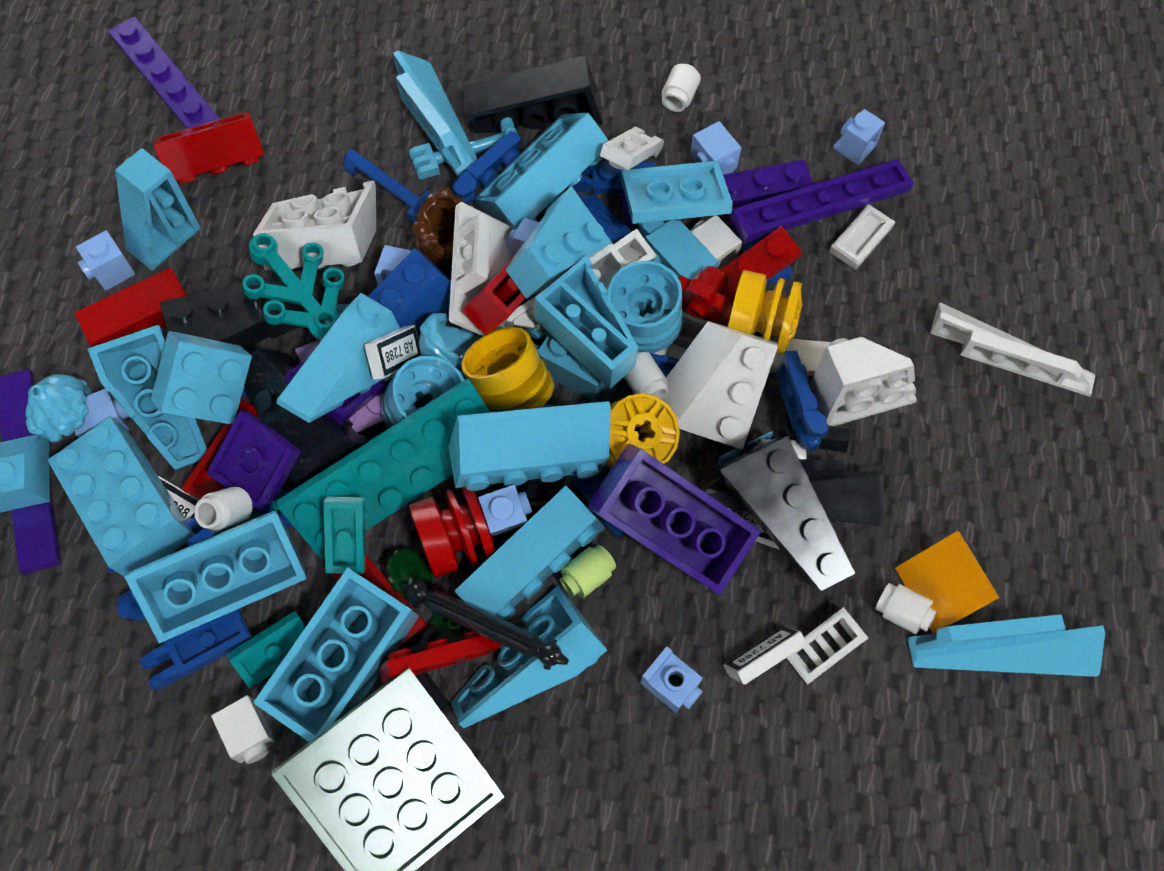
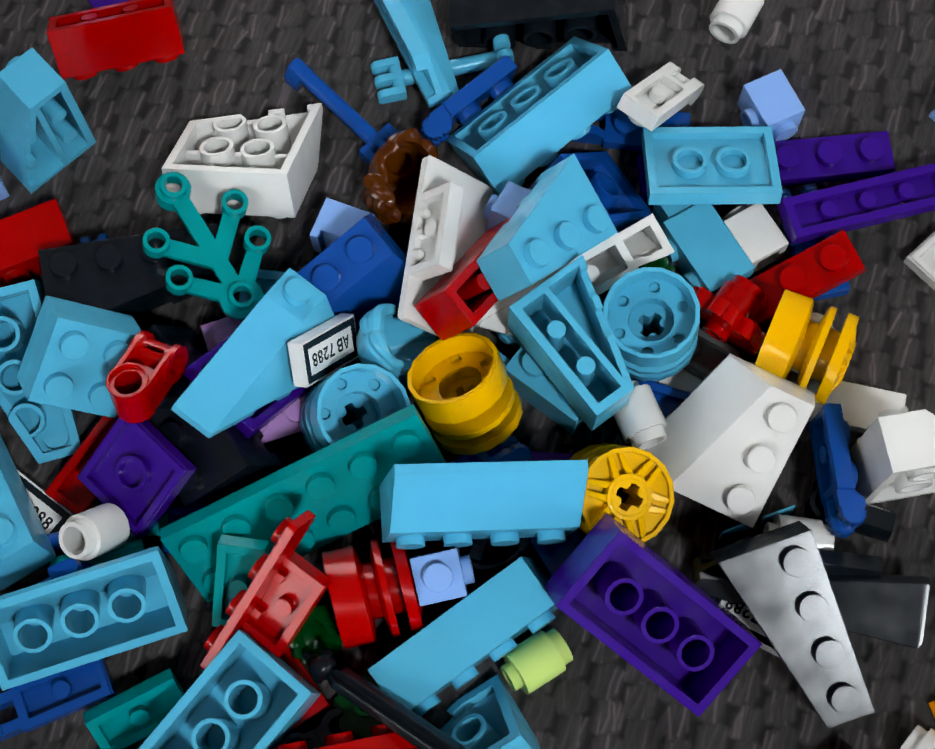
camera: 10 degrees right, 5 degrees up
(253, 383) = (147, 373): none -> red piece
(376, 537) = (280, 595): none -> red bracket

